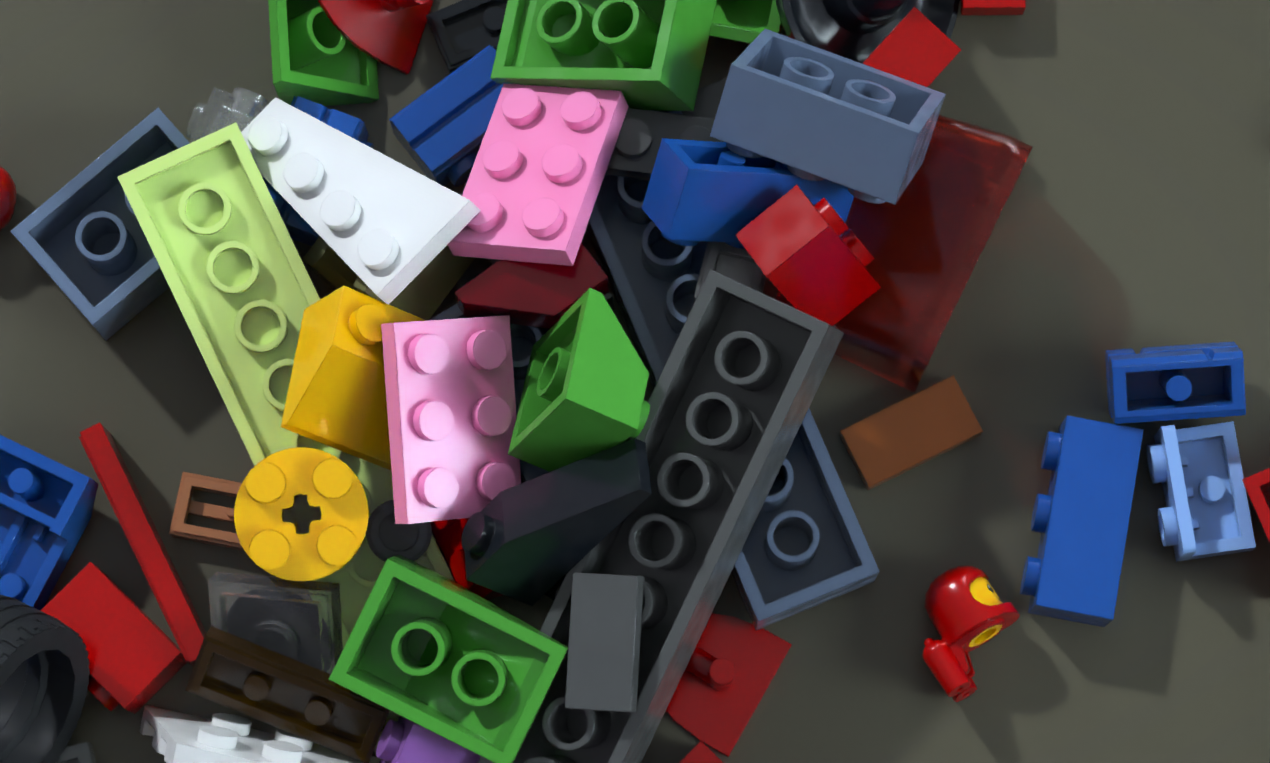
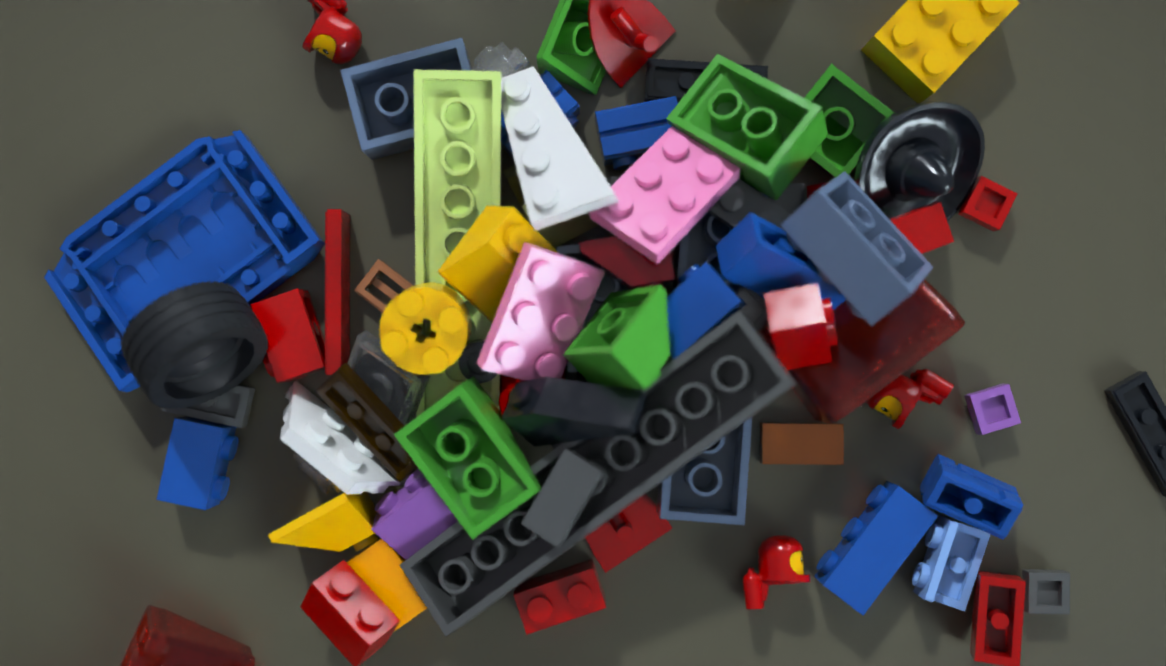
camera: 25 degrees right, 10 degrees up
(656, 296) = (699, 306): none -> blue brick
(1005, 296) = (903, 393): none -> red piece
(1147, 252) = (992, 409): none -> medium lavender plate

